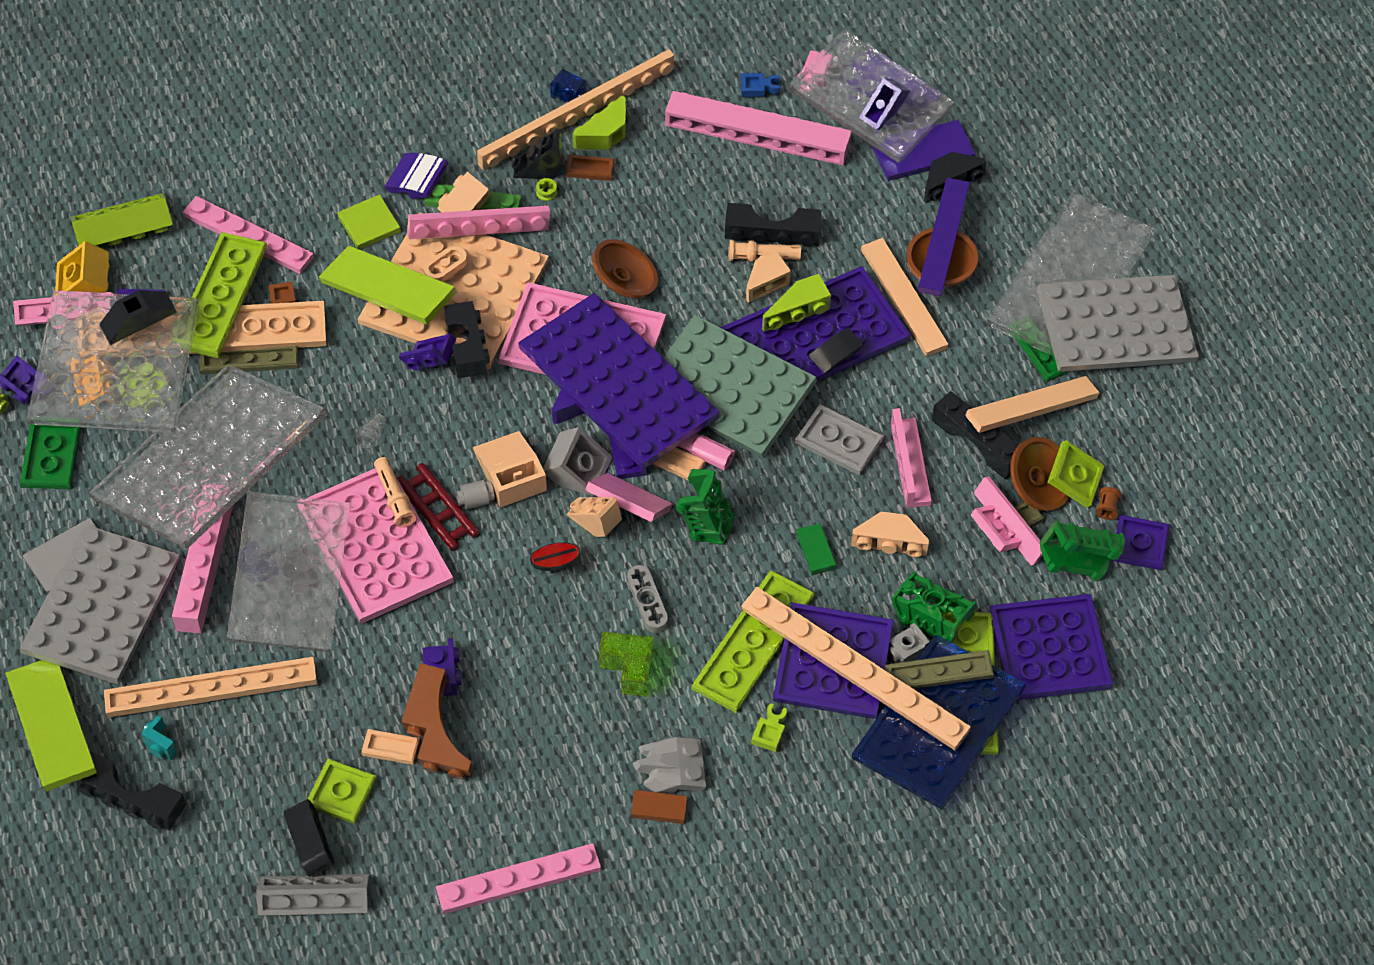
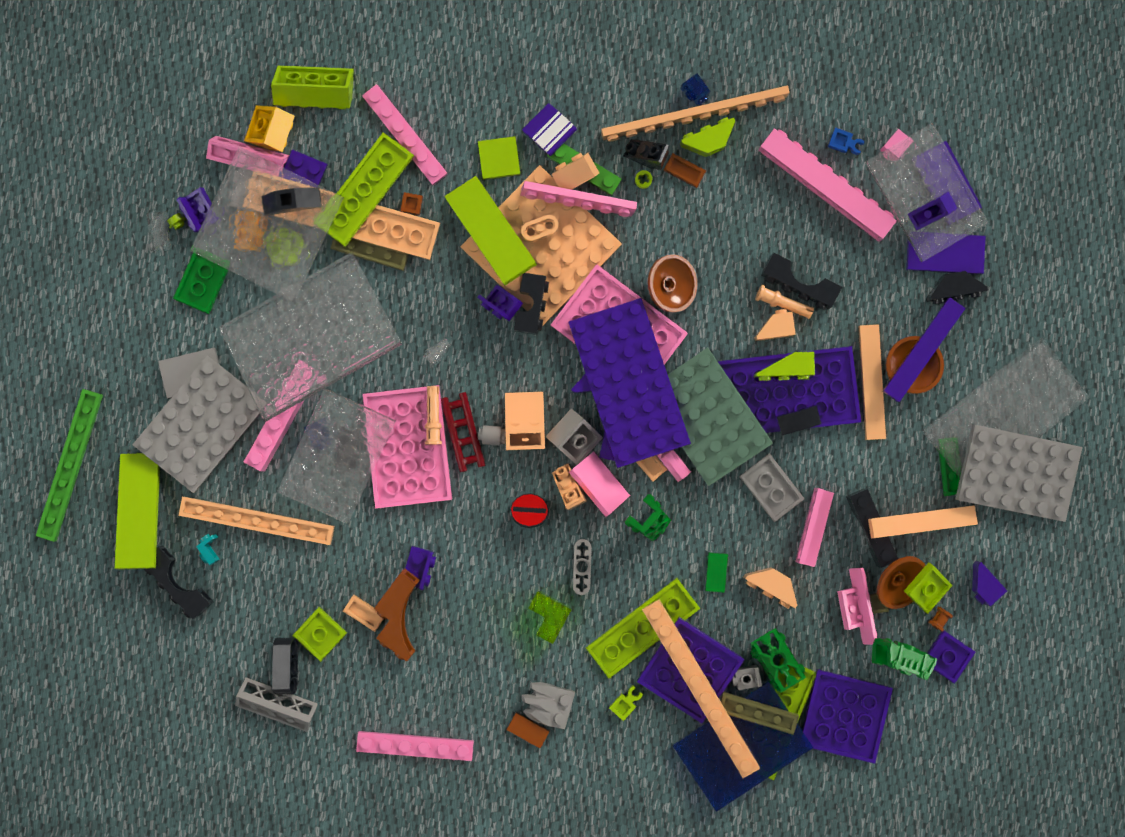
camera: 15 degrees right, 30 degrees up
(1142, 448) = (985, 585): none -> dark purple slope

